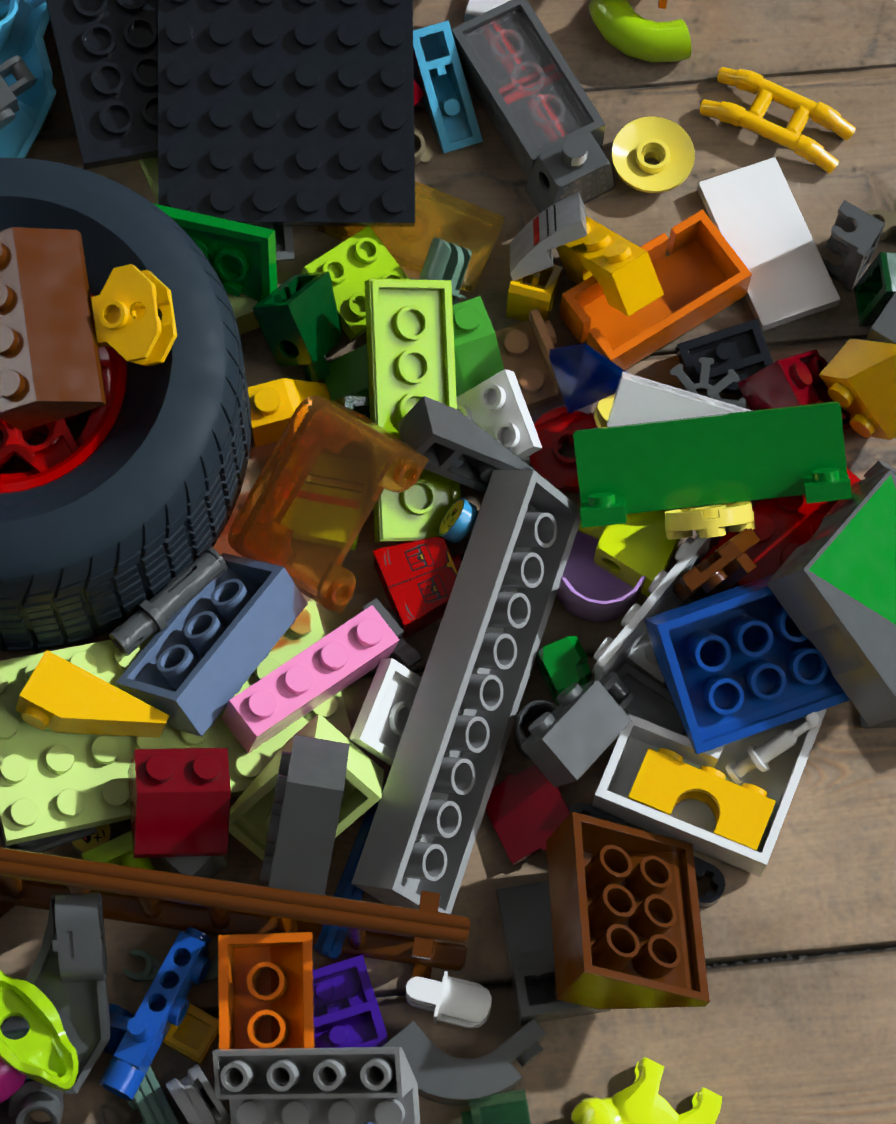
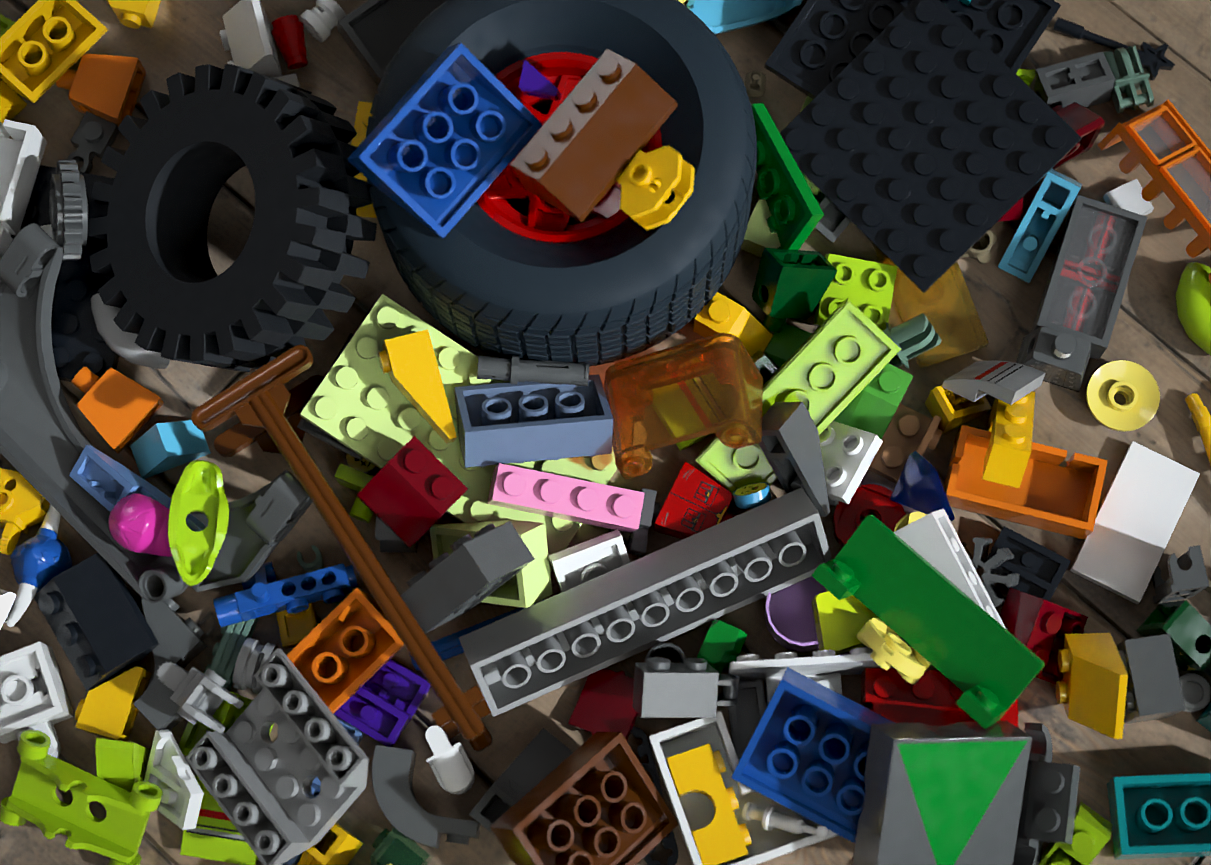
camera: 55 degrees right, 5 degrees up
(719, 570) = (866, 687): reddish brown plate -> none

